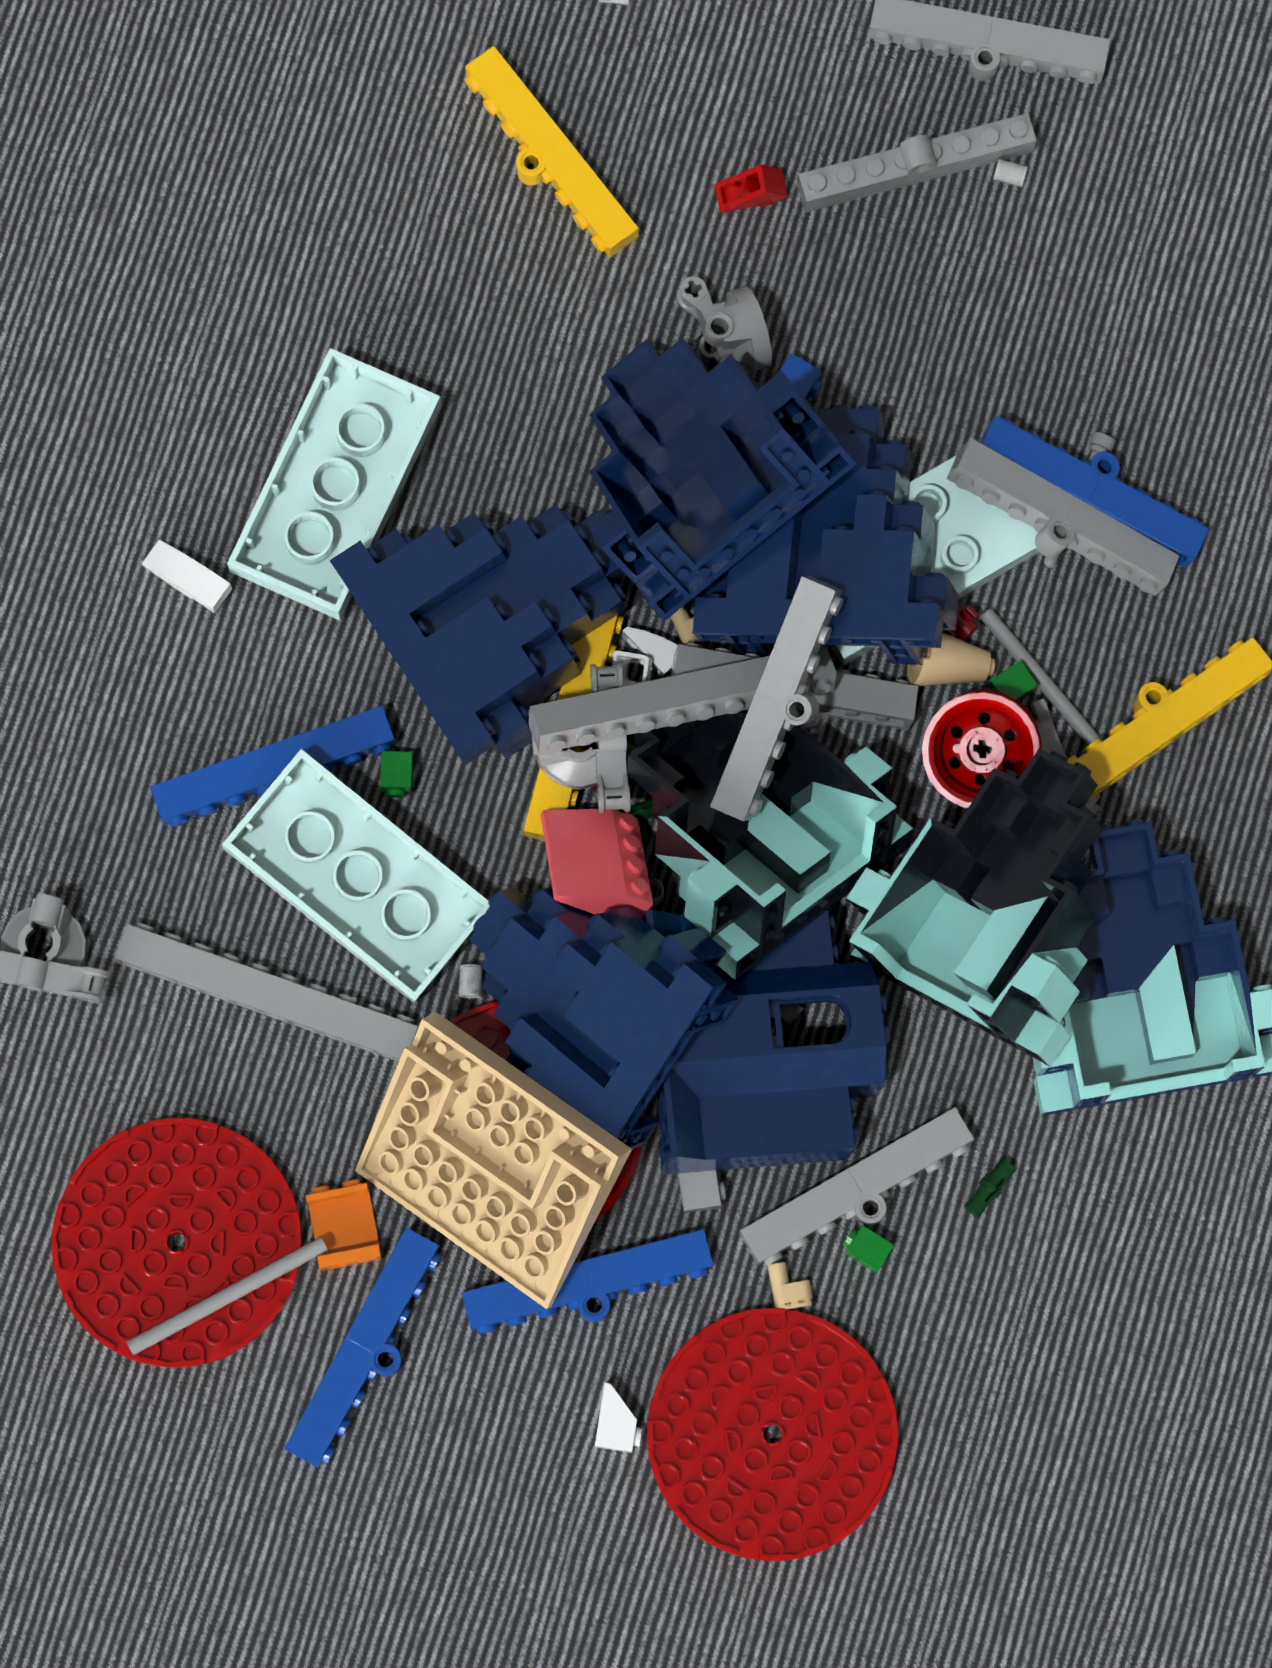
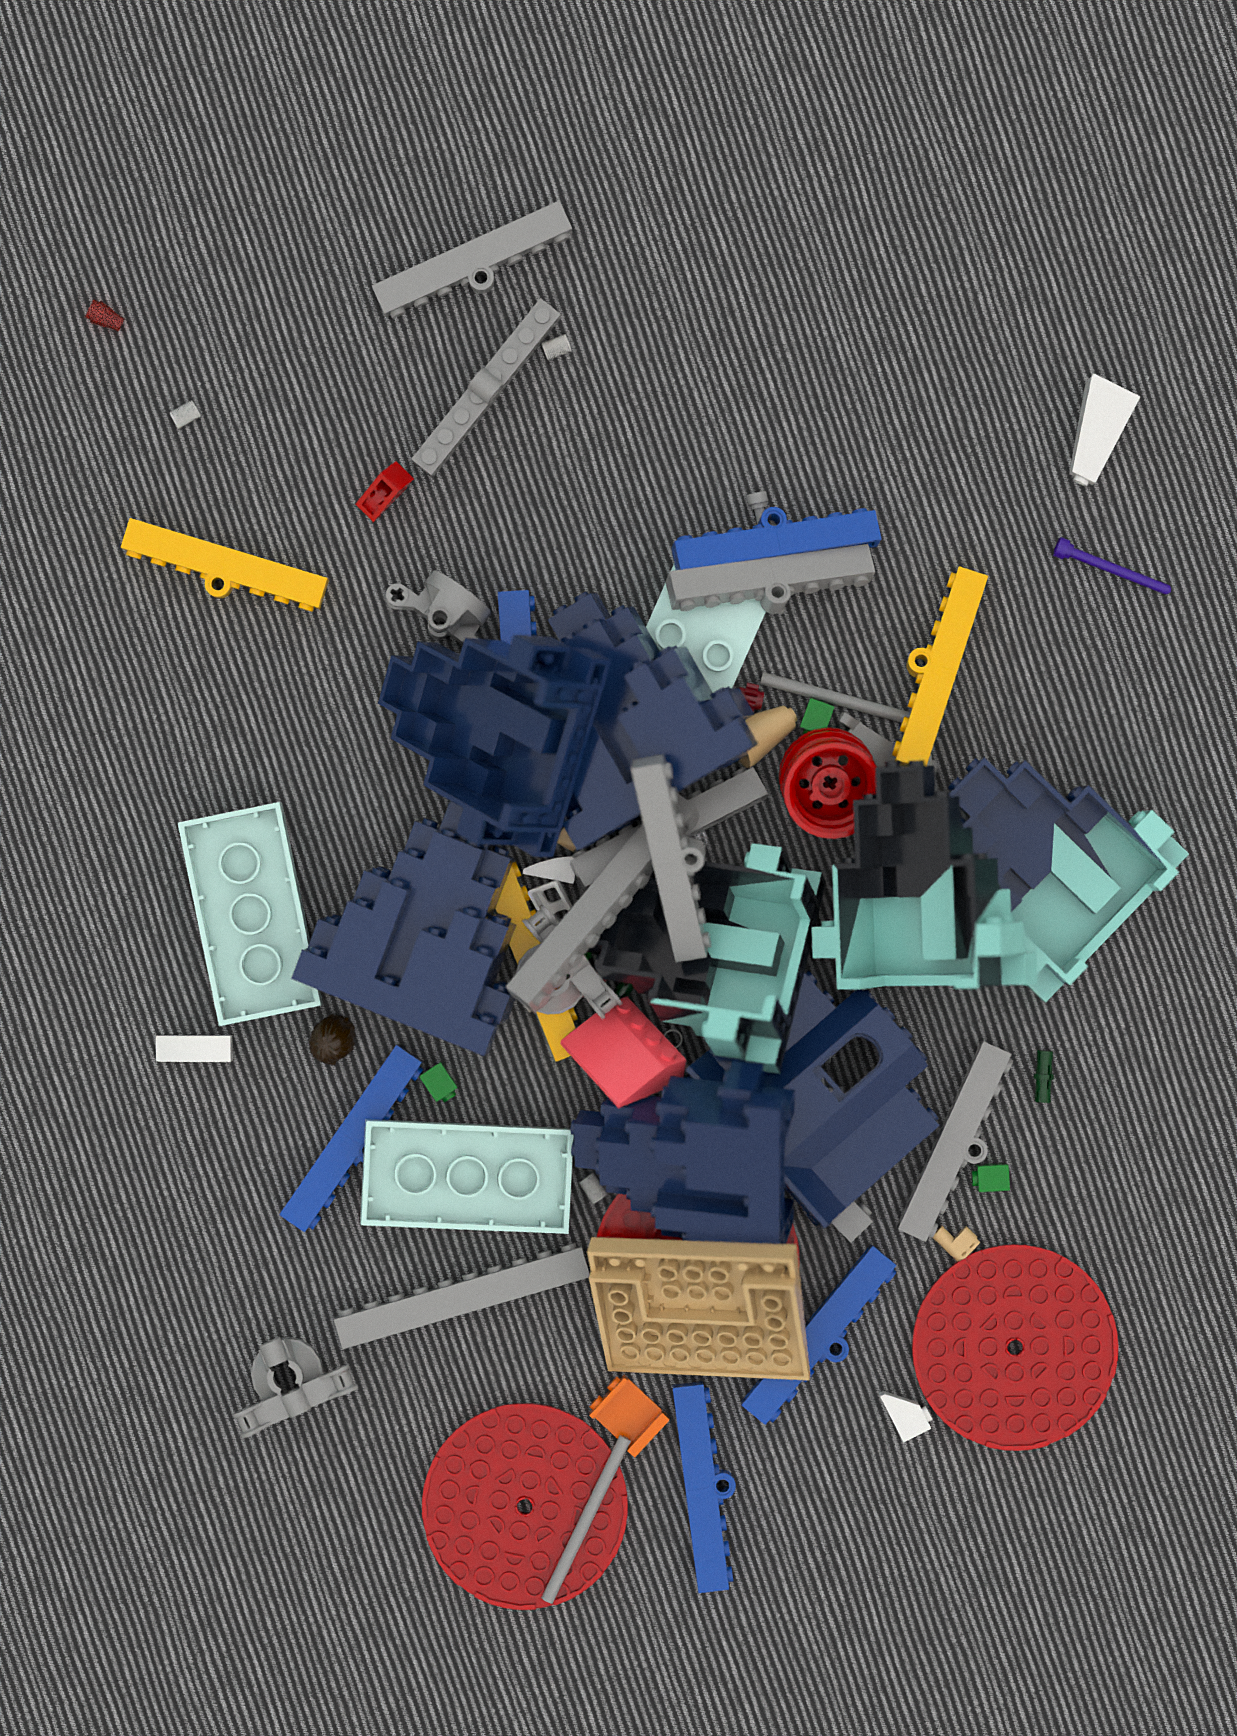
camera: 30 degrees left, 10 degrees up
(324, 660) = (332, 1039): none -> dark brown hair

